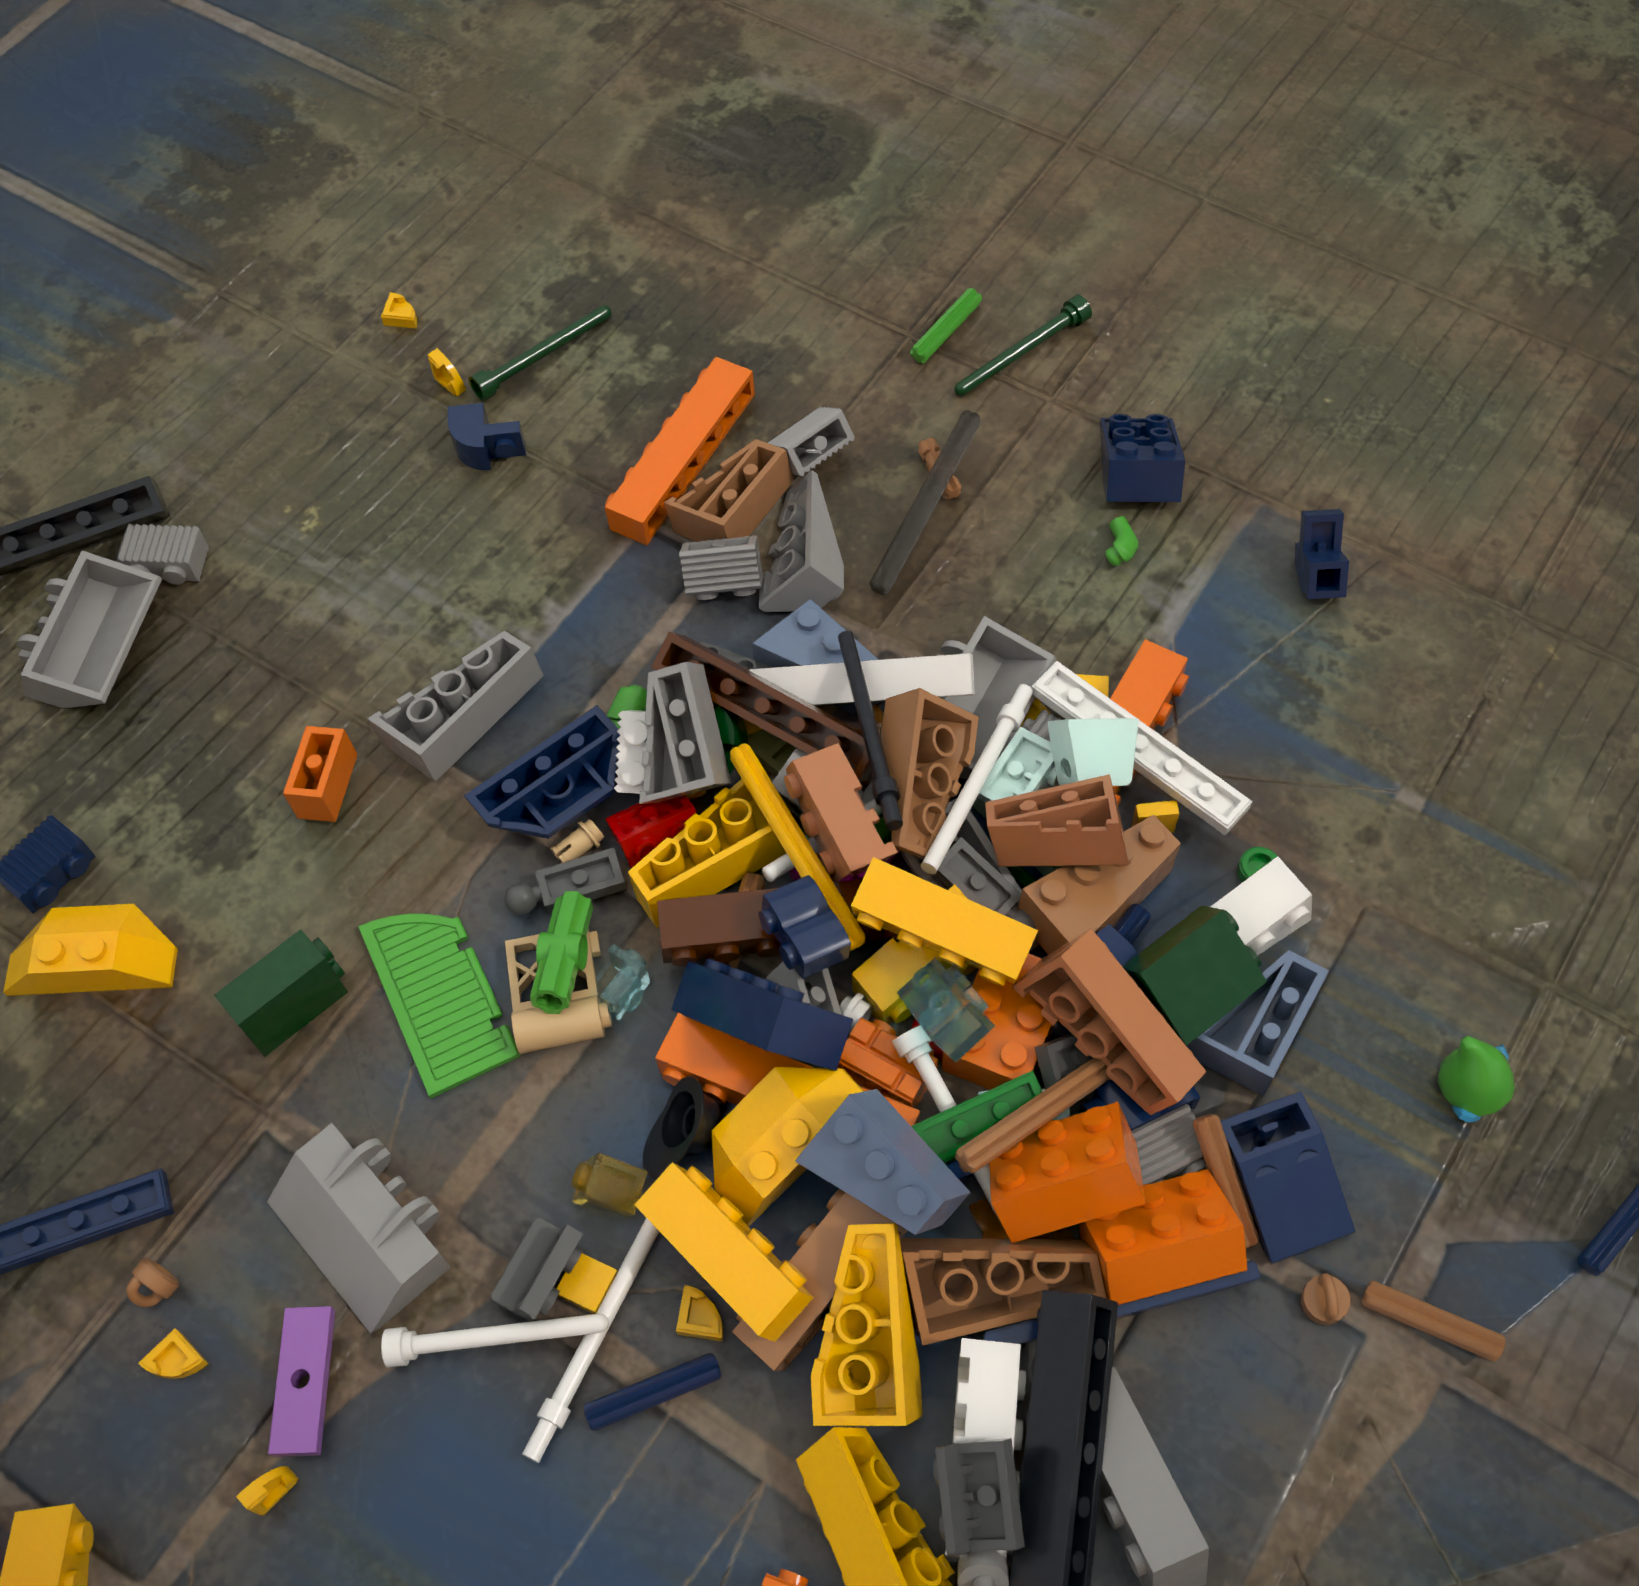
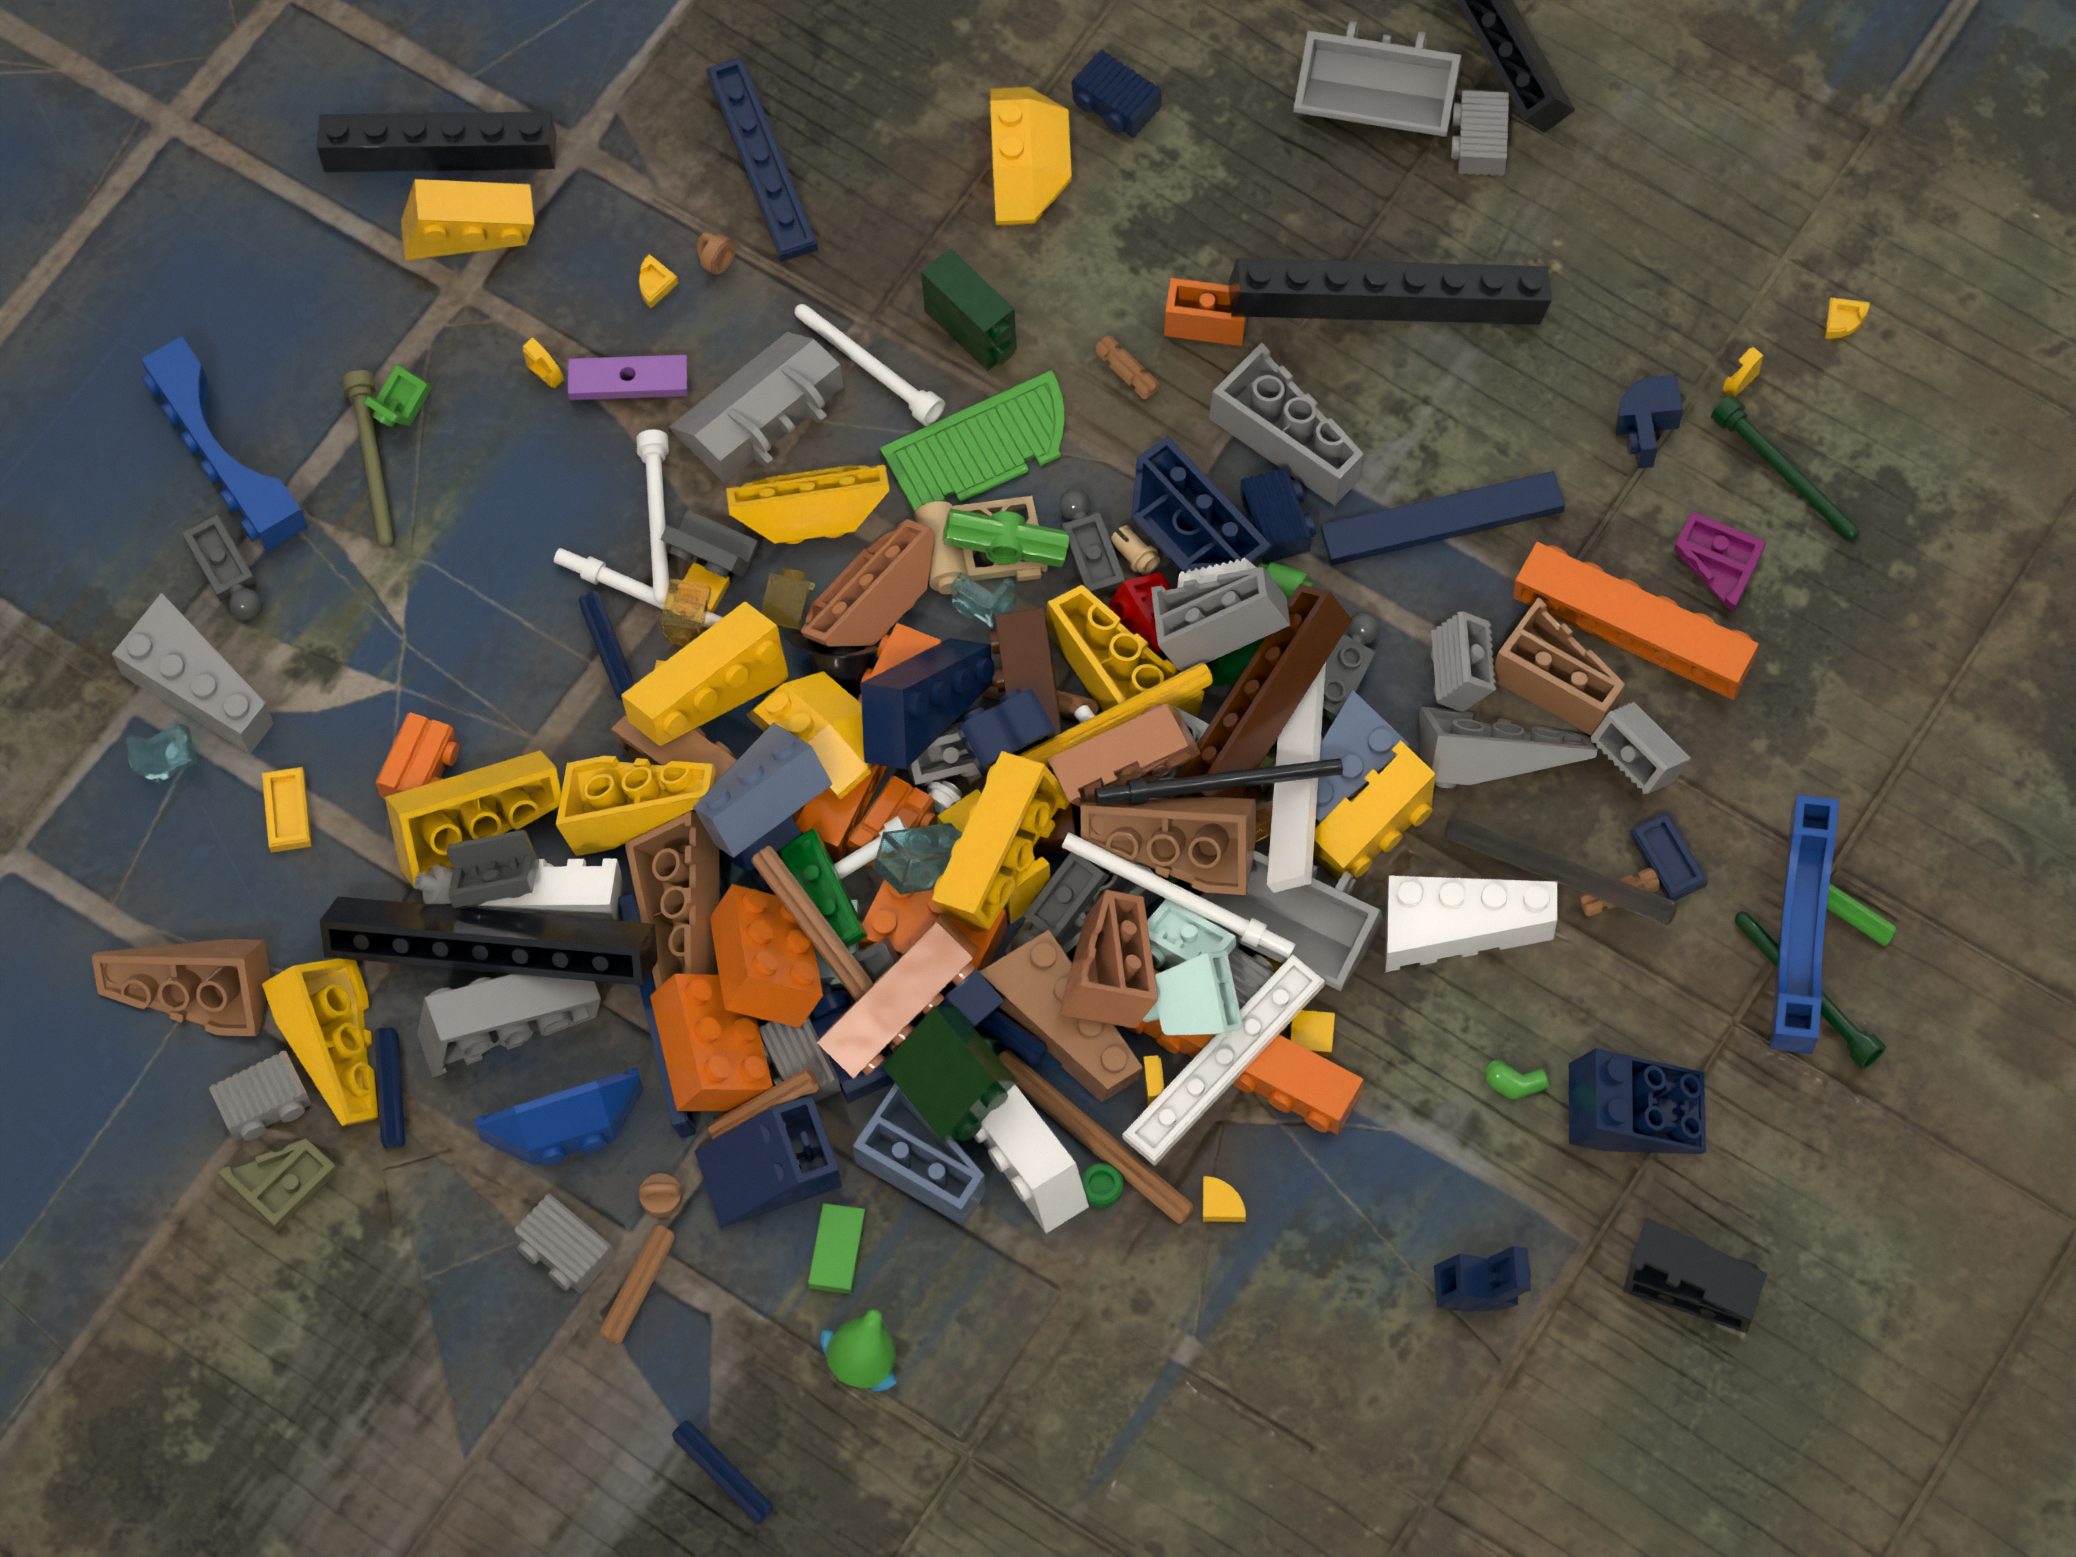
camera: 90 degrees right, 5 degrees up
(328, 617) = (1389, 291): none -> black brick
(366, 855) = (1127, 367): none -> medium nougat axle
(382, 1049) = (924, 405): none -> white piece
(492, 1156) = (809, 502): none -> yellow wedge
(543, 715) = (1275, 511): none -> dark blue brick
(564, 596) = (1442, 518): none -> dark blue tile
(606, 1092) = (873, 589): none -> nougat wedge
(621, 1293) = (684, 611): none -> clear yellow bracket
(623, 393) = (1719, 556): none -> magenta wing
(869, 616) = (1376, 815): none -> yellow wedge
(903, 436) = (1669, 857): none -> dark blue tile
(913, 321) = (1803, 924): none -> blue arch
(974, 570) = (1463, 916): none -> white wedge
(1216, 866) = (1097, 1139): none -> medium nougat axle
(1258, 1410) = (564, 1121): none -> blue wedge
(1264, 767) = (1221, 1202): none -> yellow tile
(1293, 419) = (1693, 1277): none -> black wedge
(1361, 1112) = (837, 1248): none -> bright green tile
(1405, 1403) = (563, 1245): none -> light grey brick

